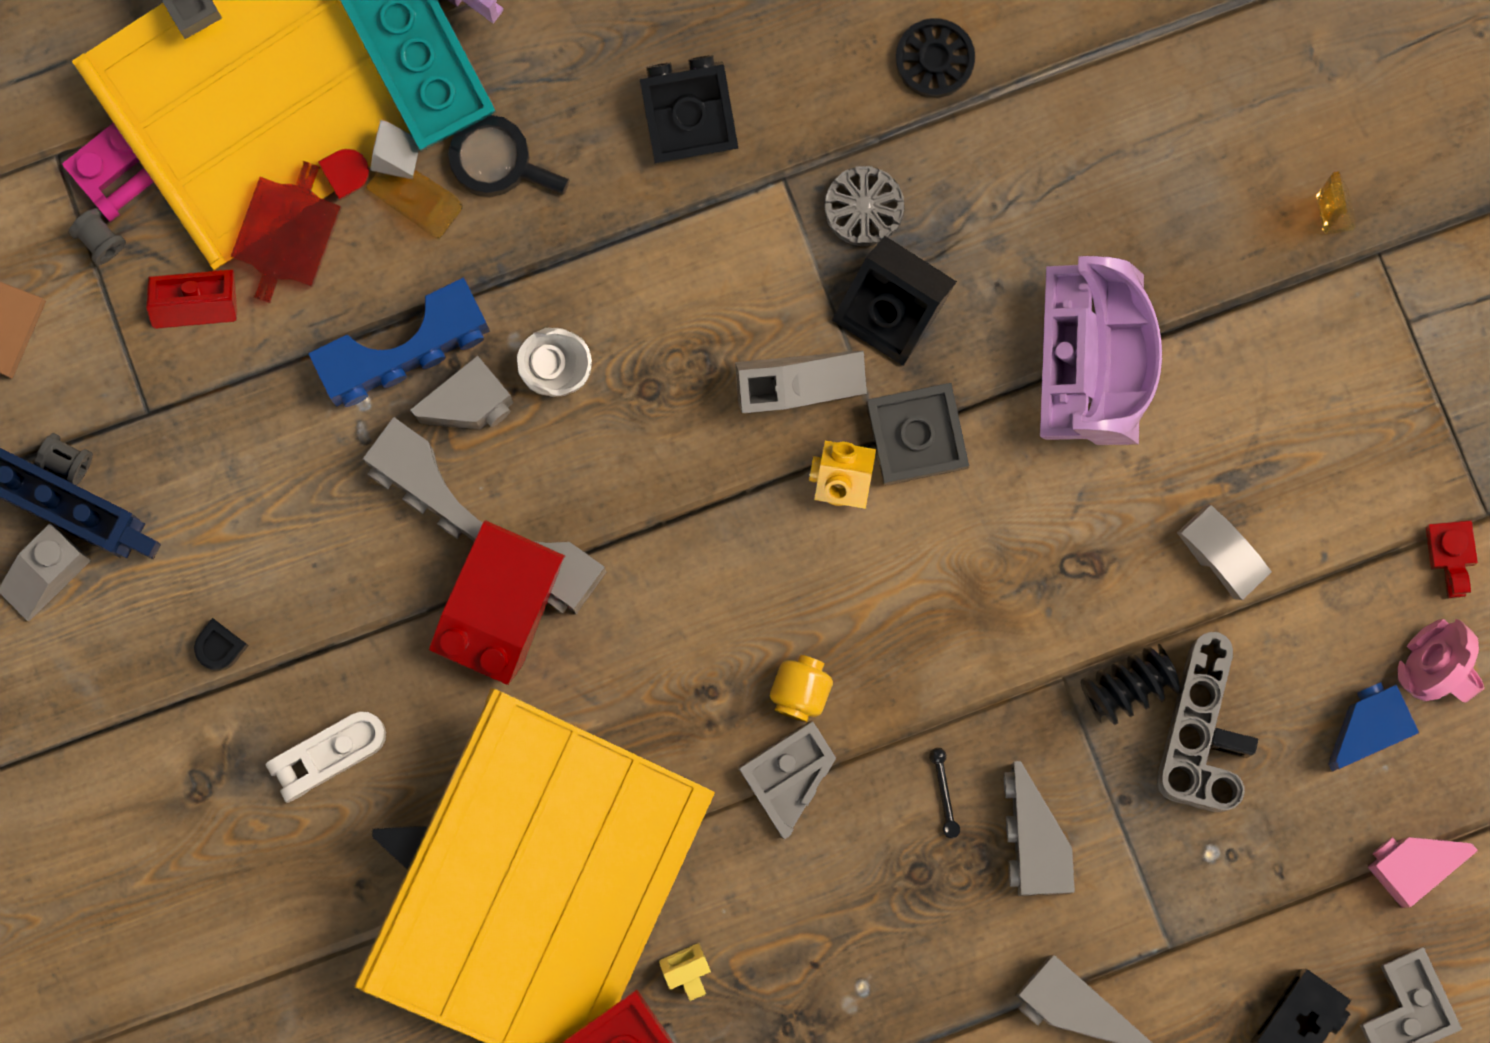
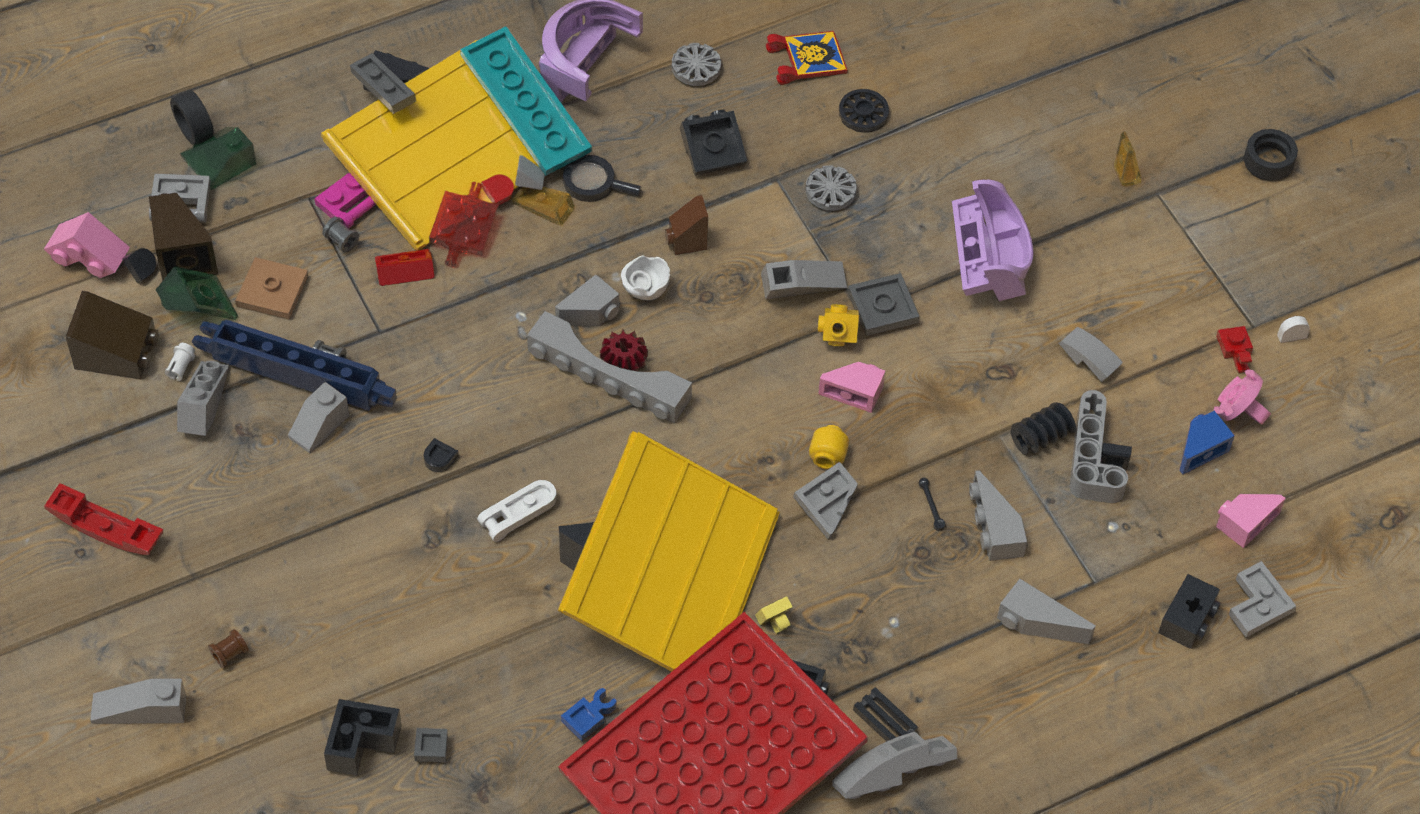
camera: 10 degrees left, 25 degrees down
(353, 369) = (515, 292): blue arch -> none
(497, 603) = (624, 402): red slope -> none
(523, 484) = (624, 351): none -> dark red gear
(629, 276) = (688, 227): none -> reddish brown slope
(856, 580) = (854, 385): none -> bright pink slope
(893, 300) = (857, 233): black slope -> none

